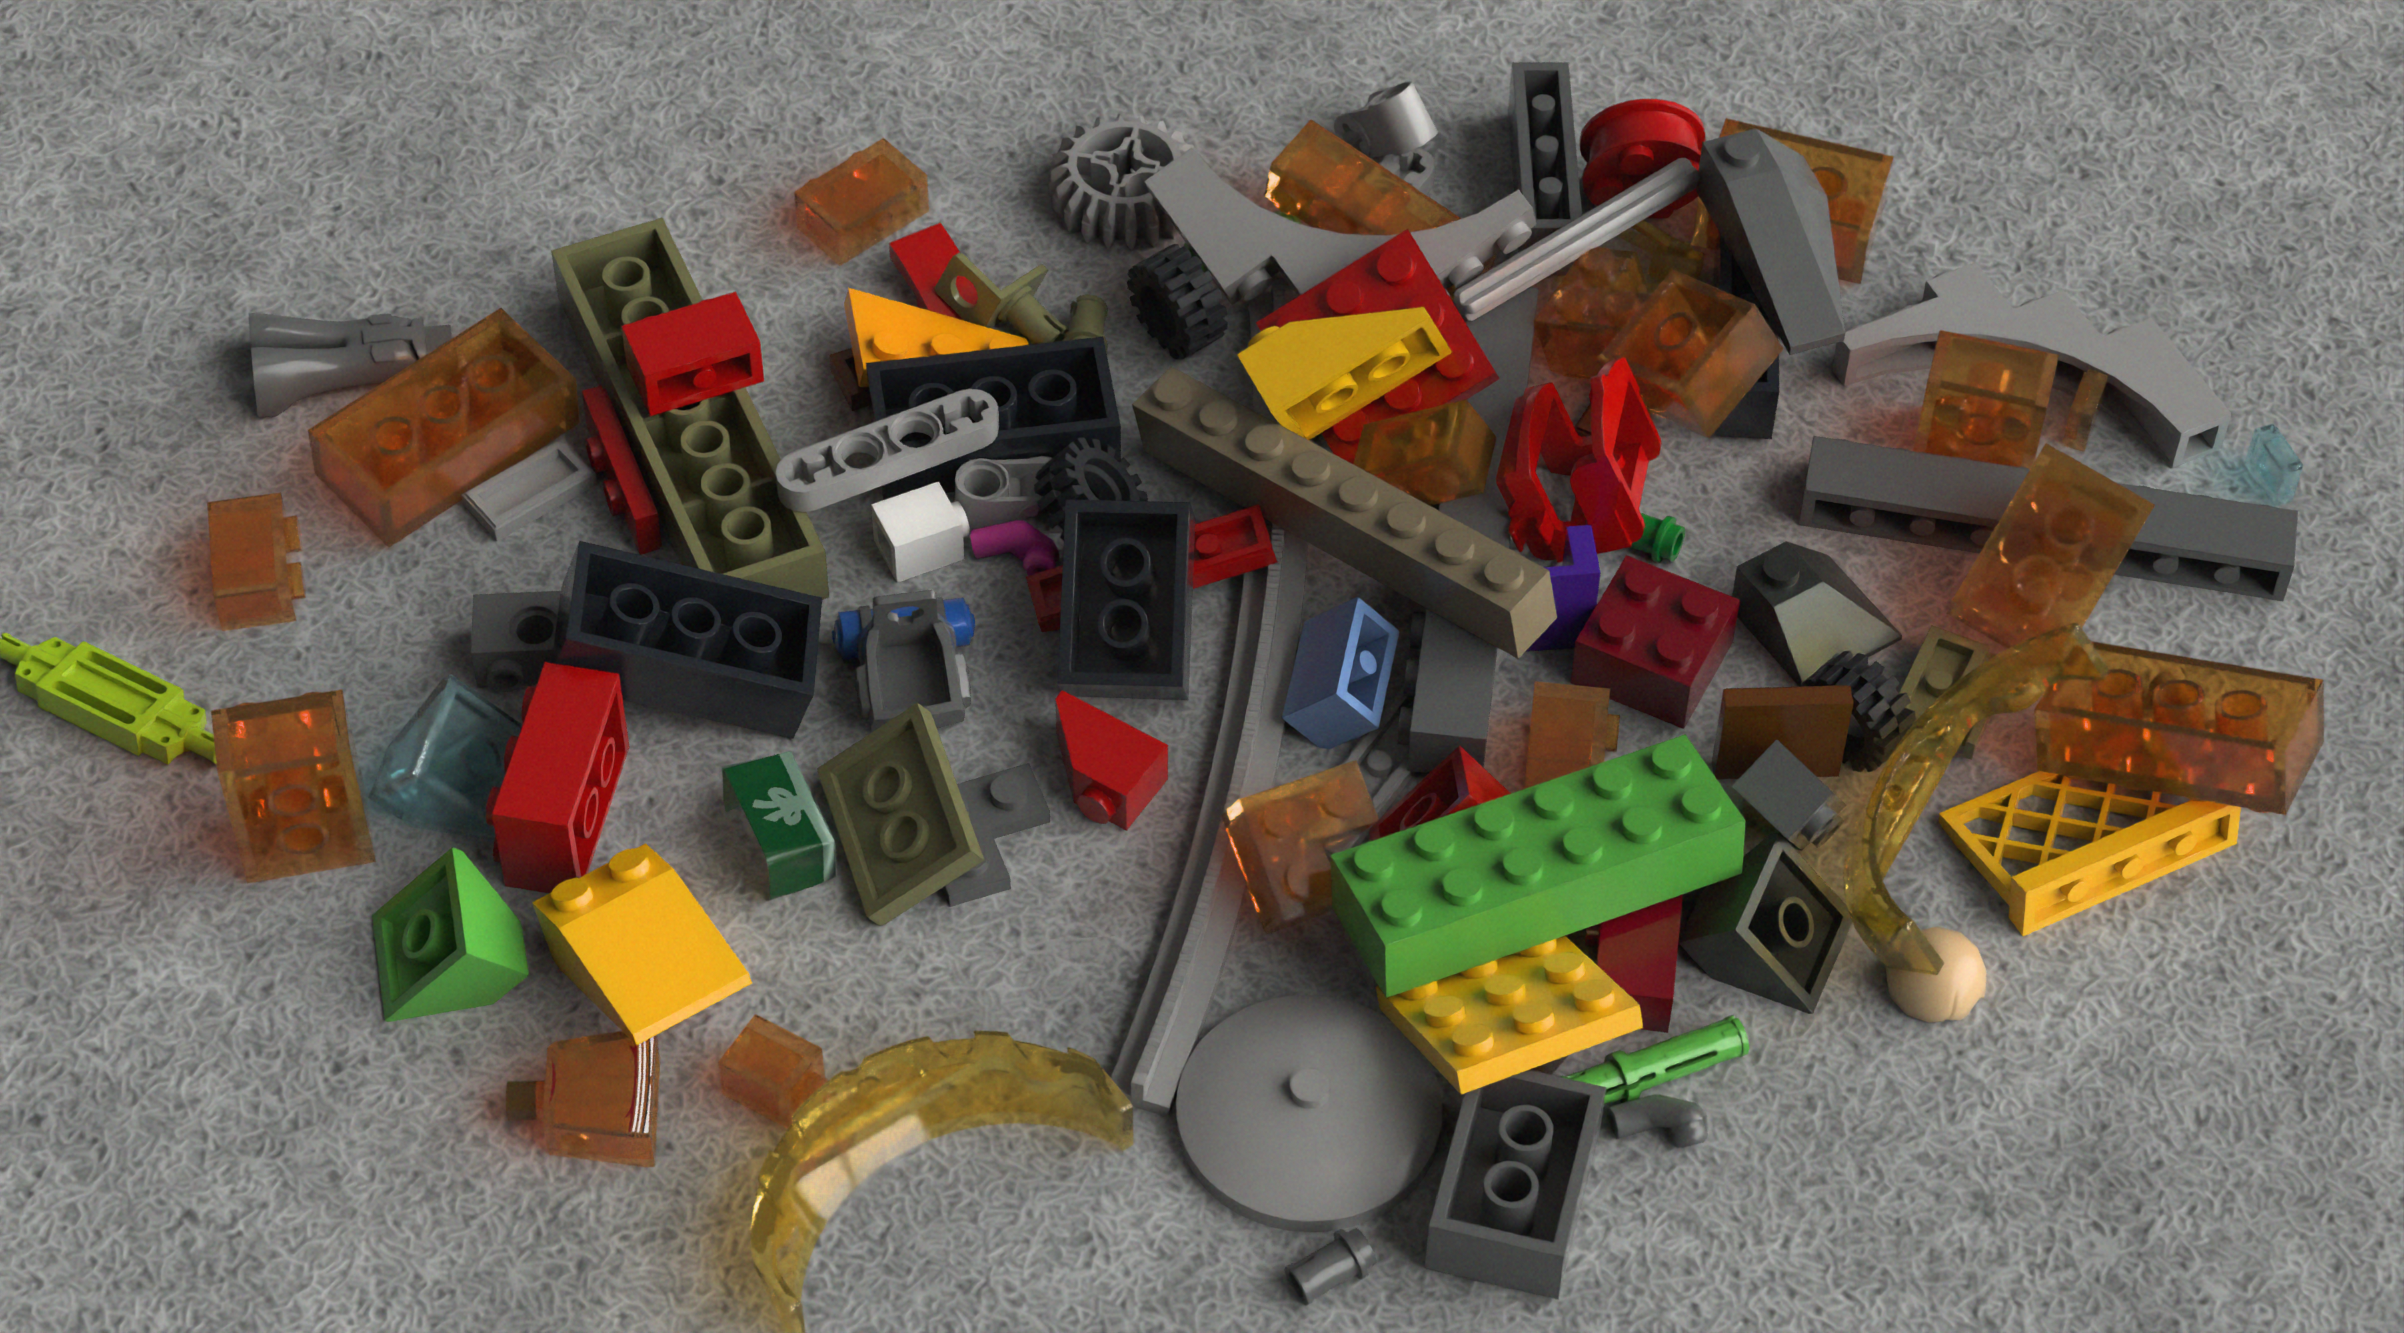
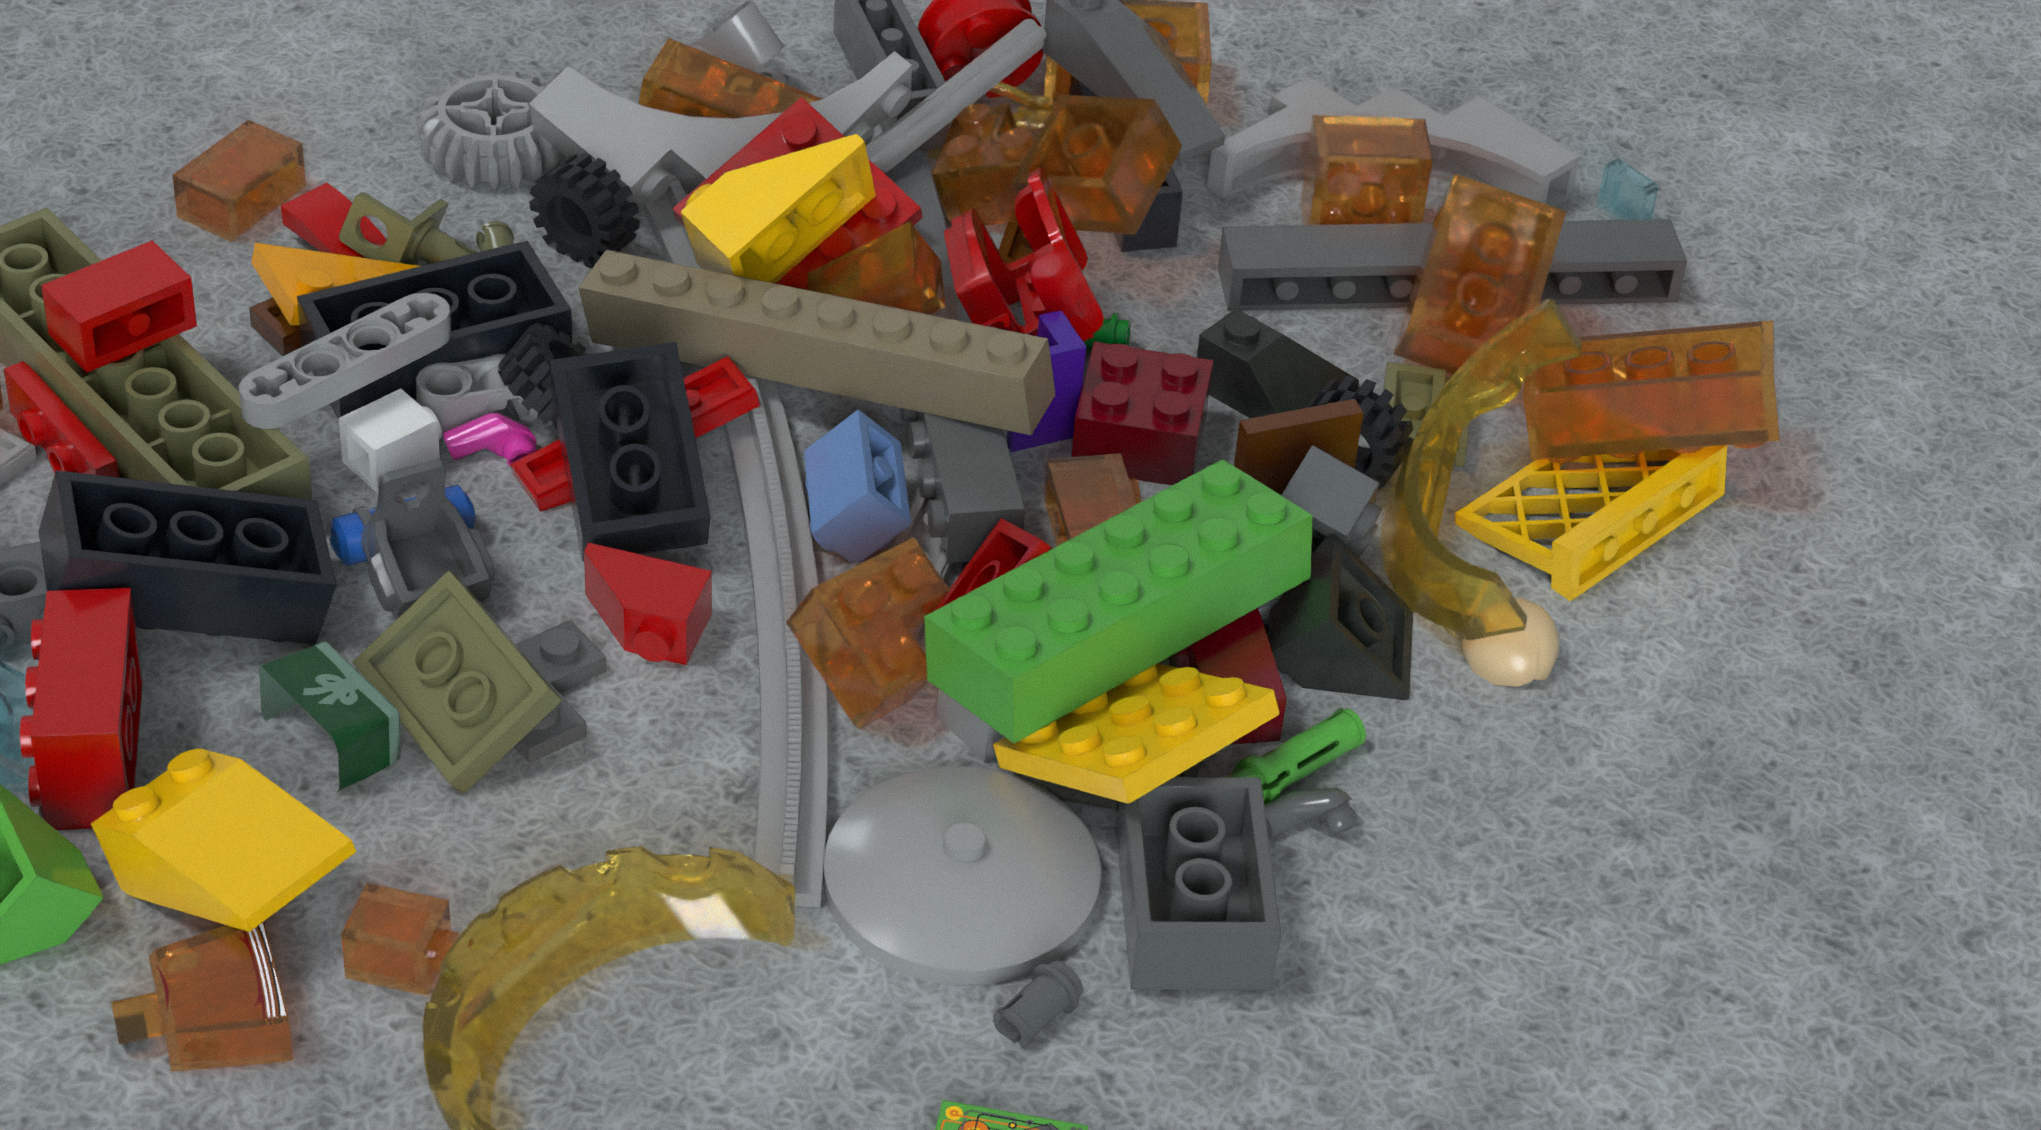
camera: 20 degrees left, 10 degrees down
(2085, 410) = (1448, 162): clear orange tile -> none

